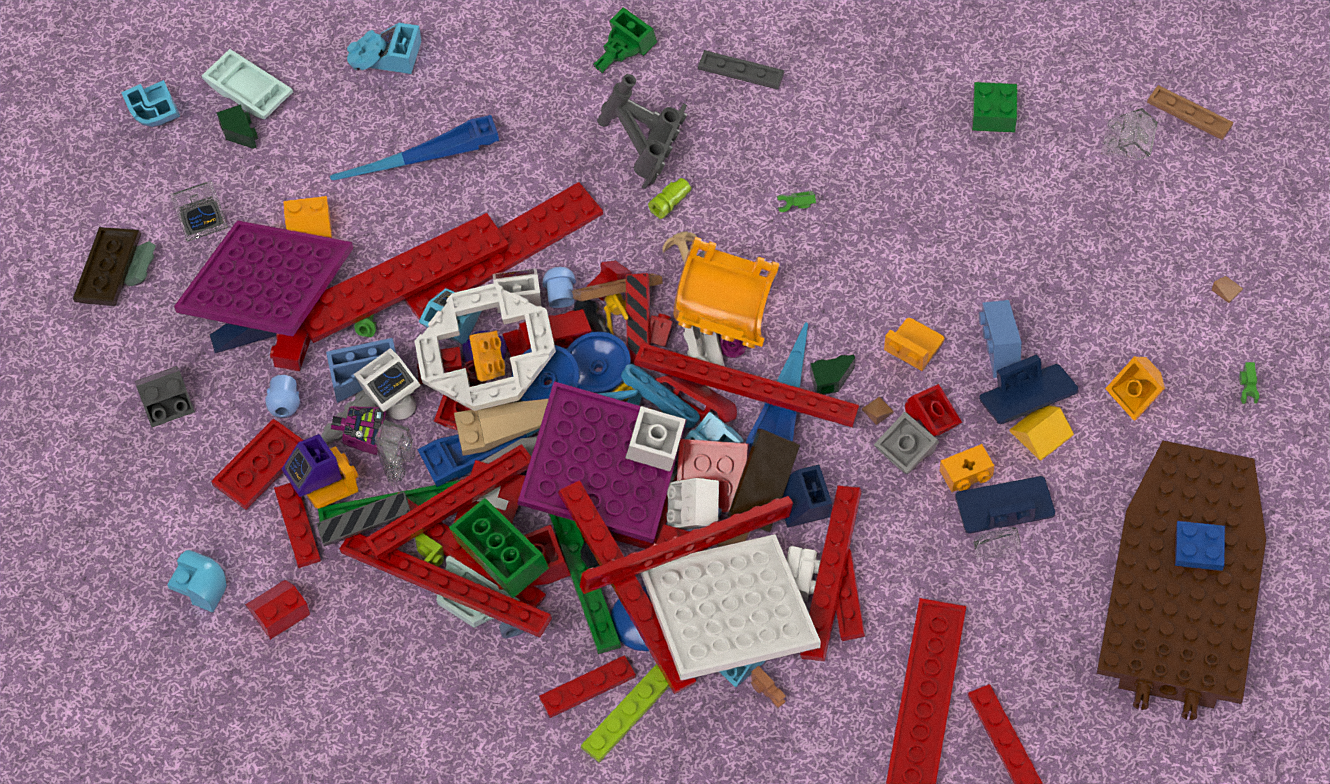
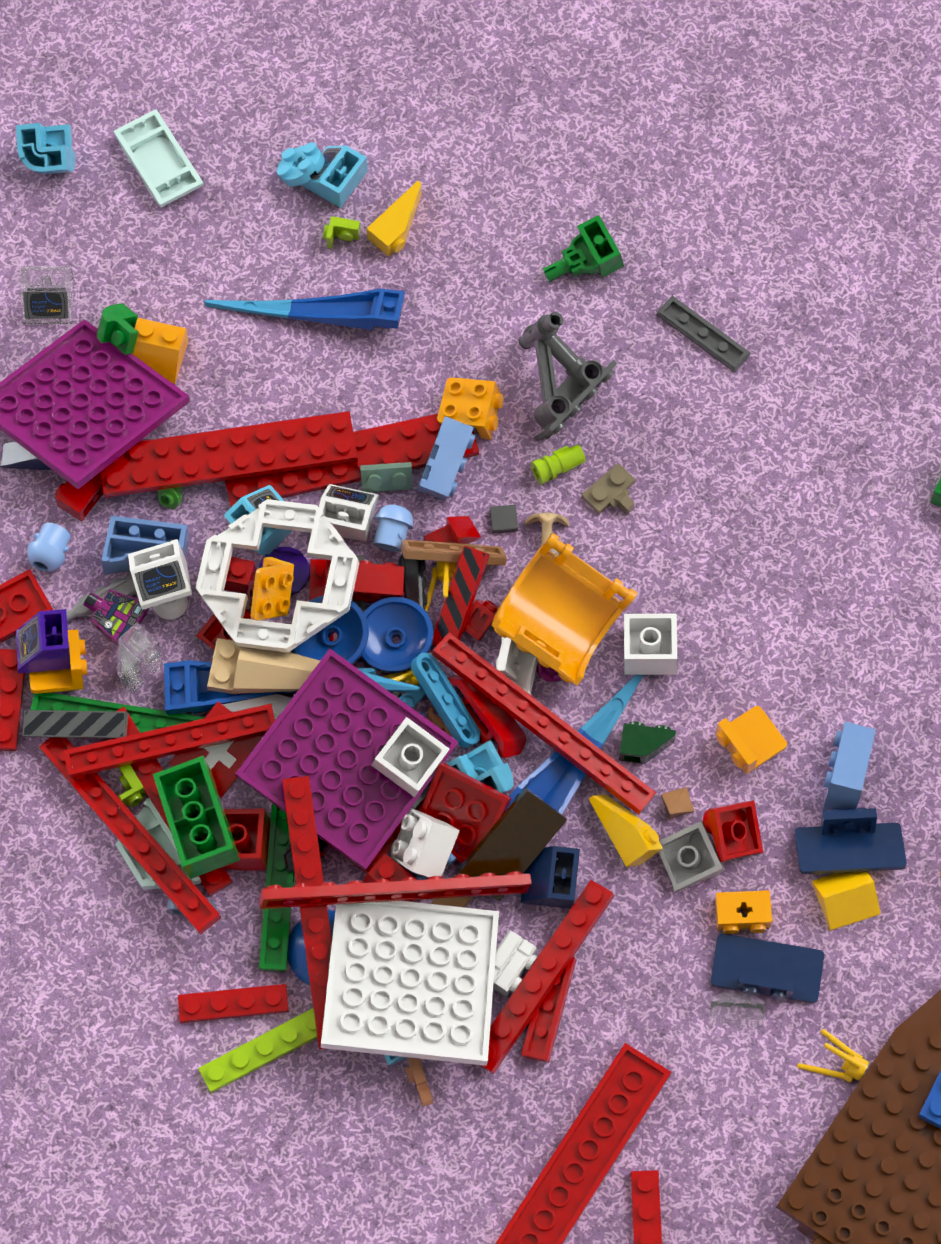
camera: 20 degrees right, 10 degrees up
(236, 126) = (127, 205): dark green slope -> none
(270, 214) = (118, 327): none -> green brick
(420, 86) = (343, 228): none -> lime bracket
(460, 72) = (393, 225): none -> yellow slope
(537, 252) = (386, 477): none -> sand green plate
(580, 221) = (446, 459): none -> medium blue wedge
(582, 176) = (472, 403): none -> light orange bracket
(644, 252) = (504, 518): none -> dark grey tile
(721, 204) = (611, 491): none -> dark tan hinge
(799, 199) = (700, 518): bright green plate -> none
(804, 299) = (650, 644): none -> white brick
(855, 445) = (630, 834): none -> yellow slope
(1105, 550) = (853, 1063): none -> yellow plant

